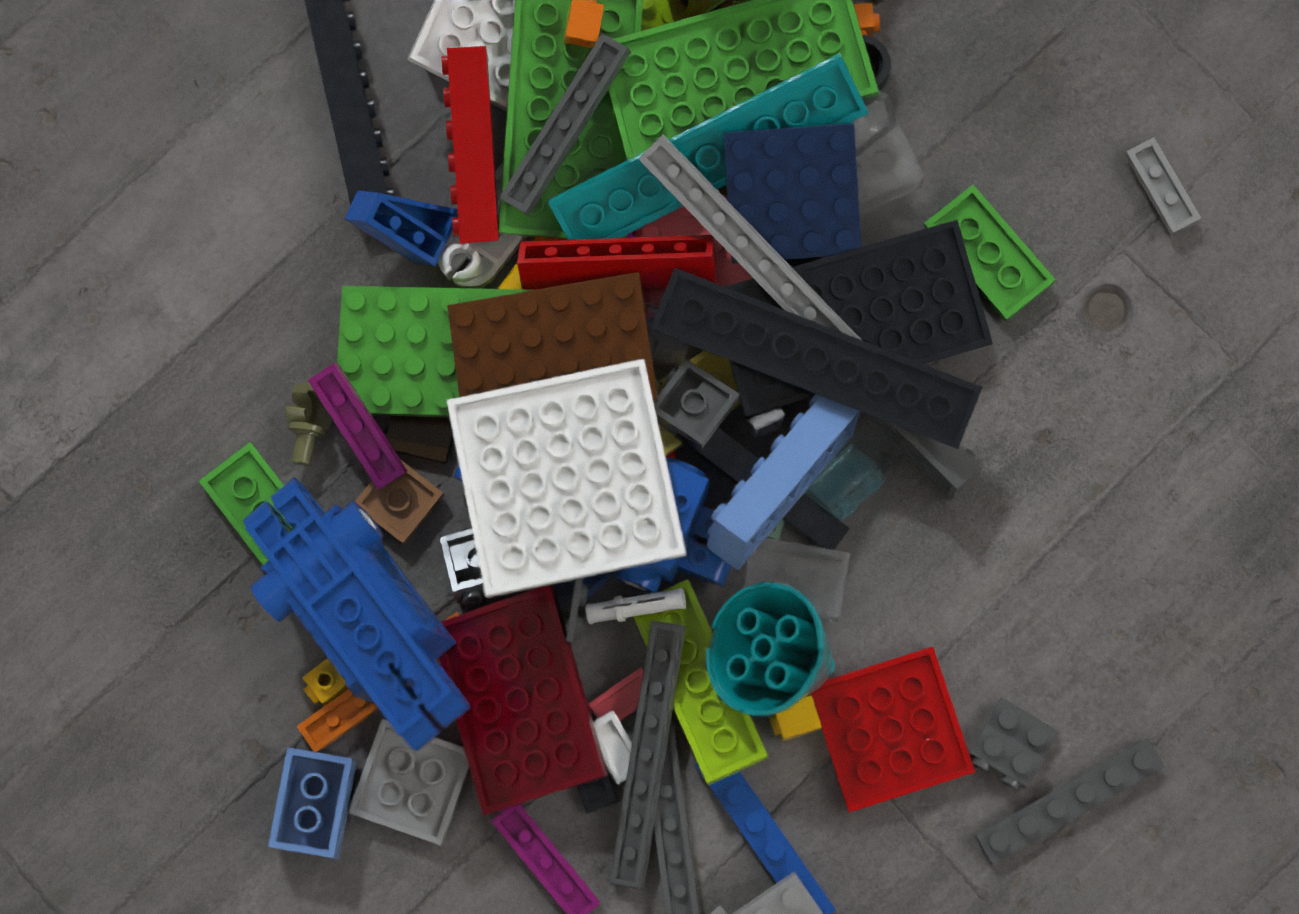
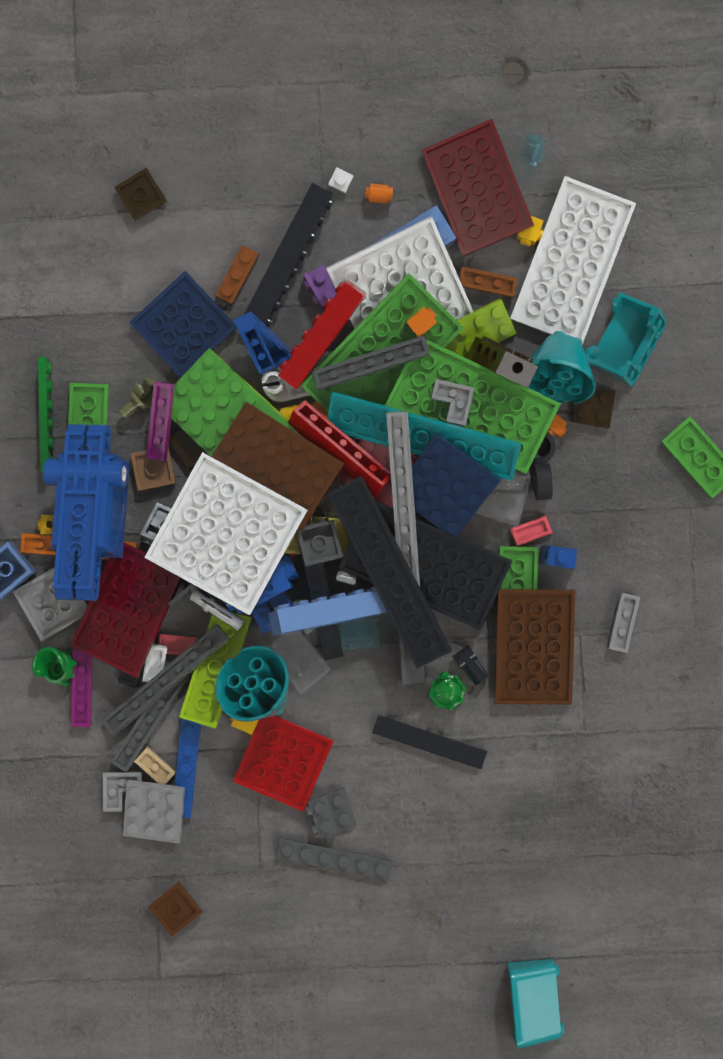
camera: 30 degrees right, 10 degrees up
(94, 176) = (140, 194): none -> dark brown plate
(193, 537) = (45, 408): none -> green plate
(283, 289) = (183, 324): none -> dark blue plate
(301, 173) = (237, 274): none -> dark orange plate
(418, 99) = (320, 284): none -> medium lavender bracket
(484, 860) = (53, 665): none -> green hair
(708, 70) = (459, 398): none -> light grey plate
(730, 882) = (155, 766): none -> tan plate
(908, 97) = (542, 482): none -> black tyre
(945, 174) = (531, 531): none -> coral tile
(1011, 172) = (558, 556): none -> blue torso
(1011, 399) = (468, 661): none -> black piece
(1020, 458) = (446, 691): none -> green hair
(1056, 544) = (429, 741): none -> black tile
(1080, 307) = (535, 646): none -> reddish brown plate

